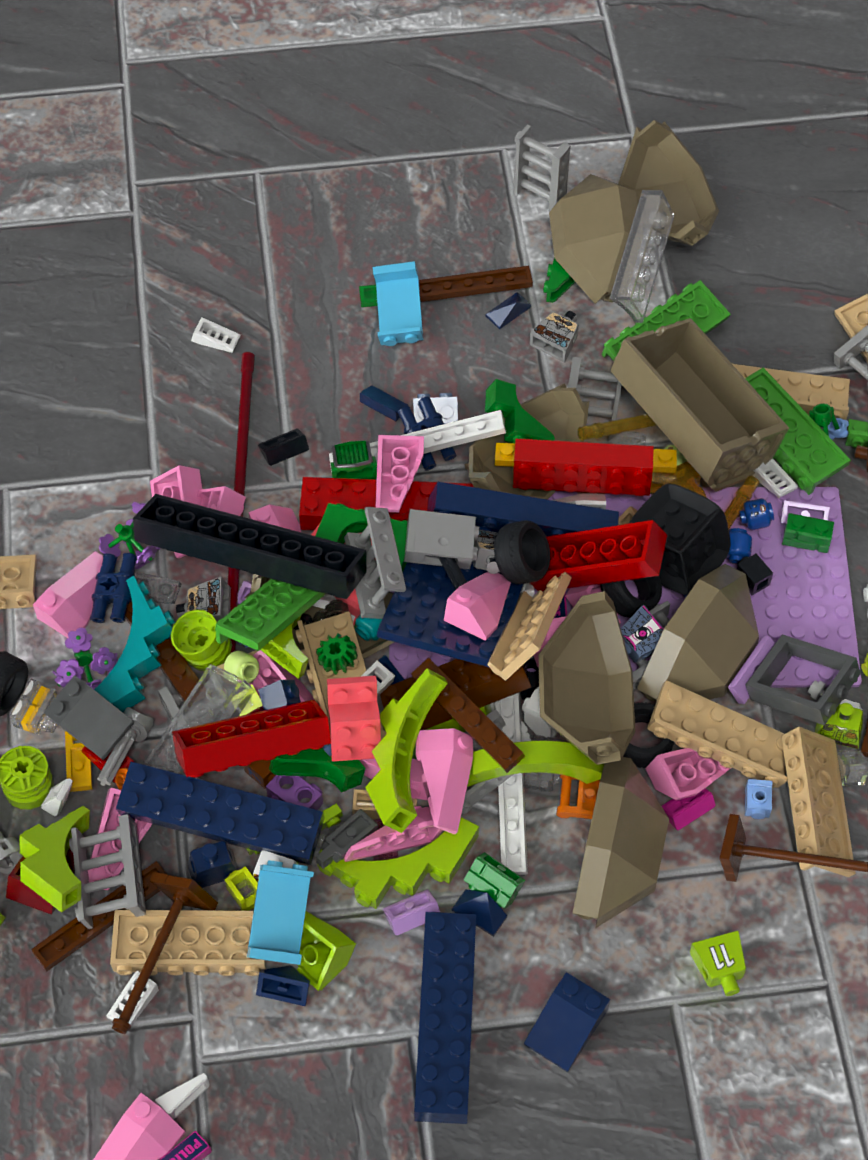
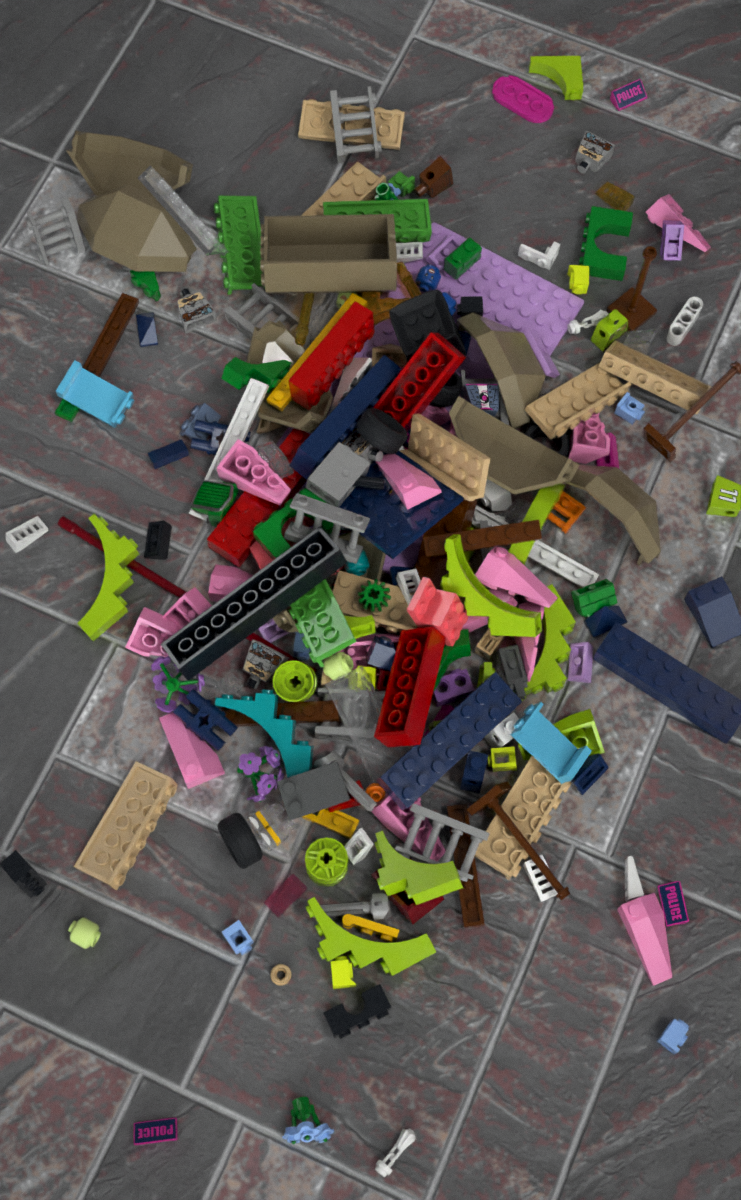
camera: 60 degrees left, 10 degrees up
(182, 440) = (117, 578): none -> lime arch
(425, 481) = (276, 459): none -> clear slope
(786, 647) = (583, 346): dark grey window -> none

